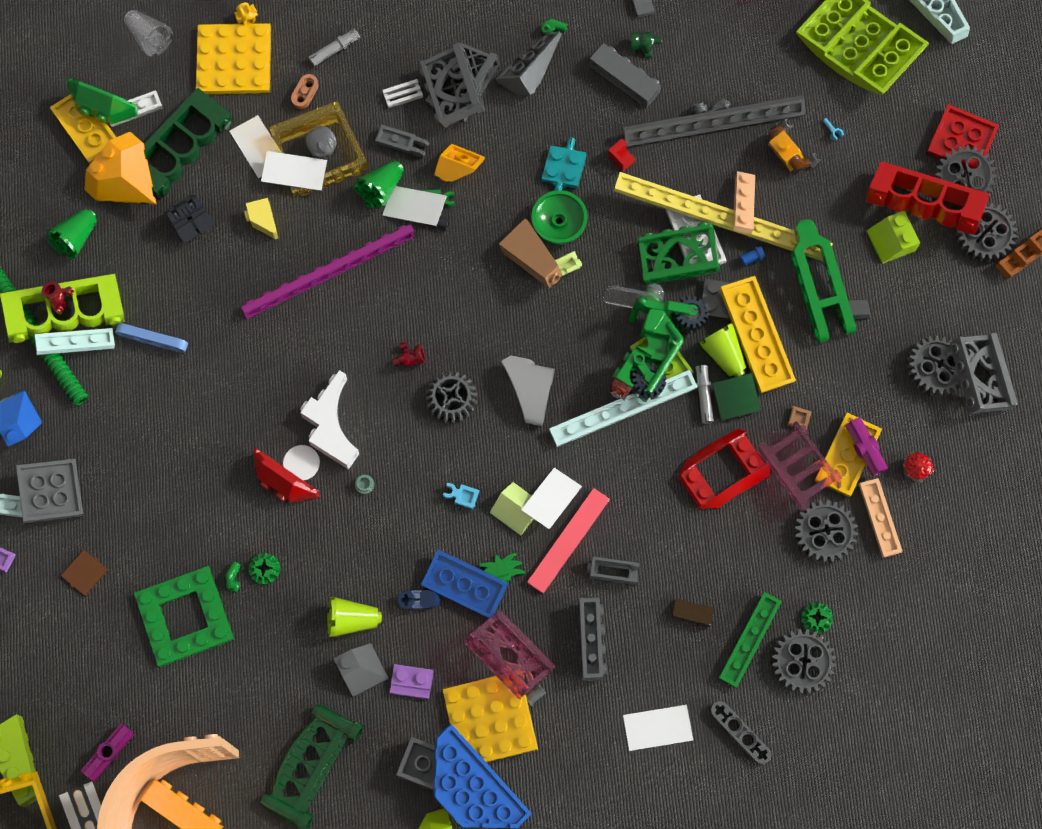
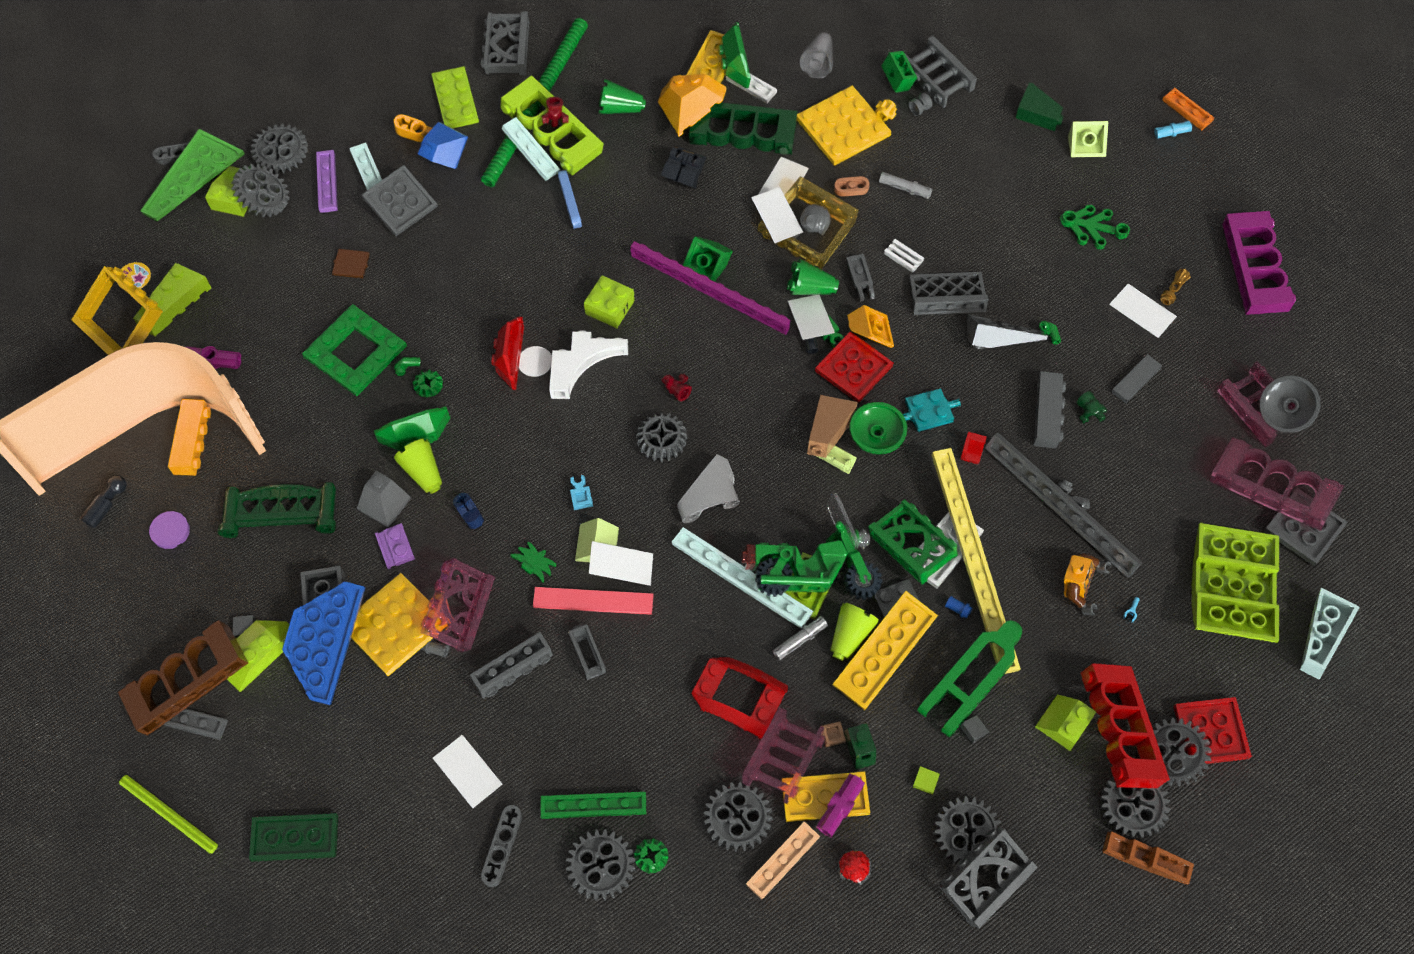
camera: 60 degrees right, 10 degrees down
(261, 217) = (723, 216): light yellow slope -> none
(287, 364) = (609, 301): none -> lime brick
(298, 256) = (707, 257): none -> green slope
(309, 606) = (422, 425): none -> green wedge
(364, 484) = (544, 415): sand green plate -> none
(464, 584) = (502, 537): blue plate -> none
(471, 97) = (957, 277): dark grey fence -> none
(485, 201) = (854, 367): none -> red plate
(692, 613) = (590, 741): dark brown slope -> none
(736, 396) = (814, 665): dark green slope -> none
(744, 203) = (1001, 568): light nougat plate -> none
(823, 401) = (860, 744): none -> dark green torso
(878, 371) = (926, 780): none -> lime tile

